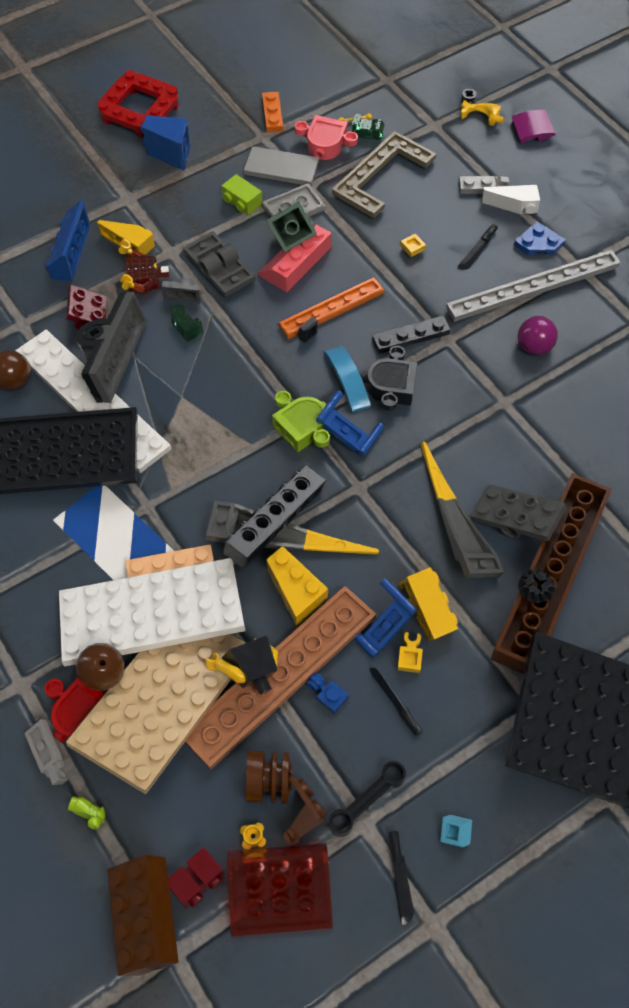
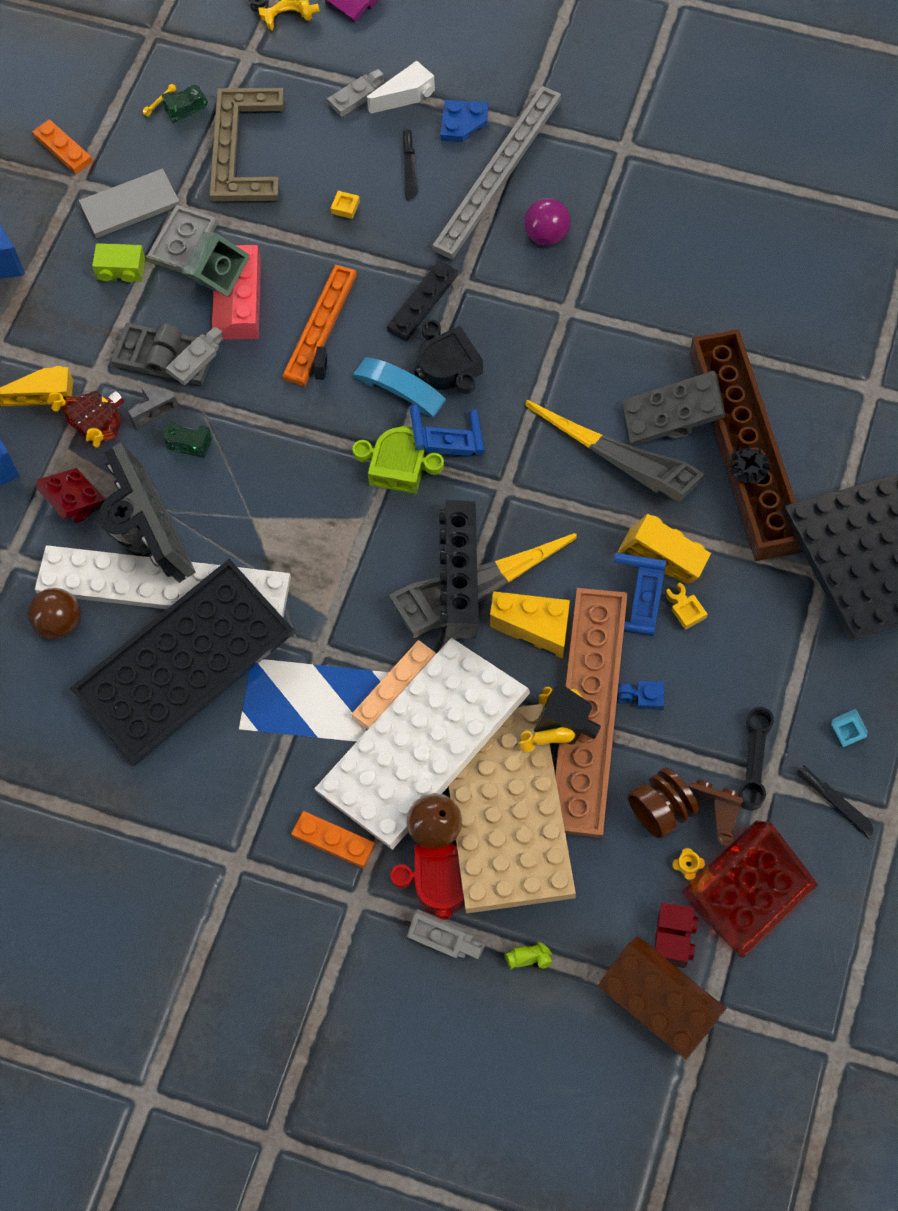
camera: 35 degrees left, 5 degrees up
(41, 633) = (333, 839): none -> orange plate
(234, 275) = (195, 356): none -> light grey hinge
(326, 136) = (150, 140): coral piece -> none
(403, 711) = (707, 657): black piece -> none

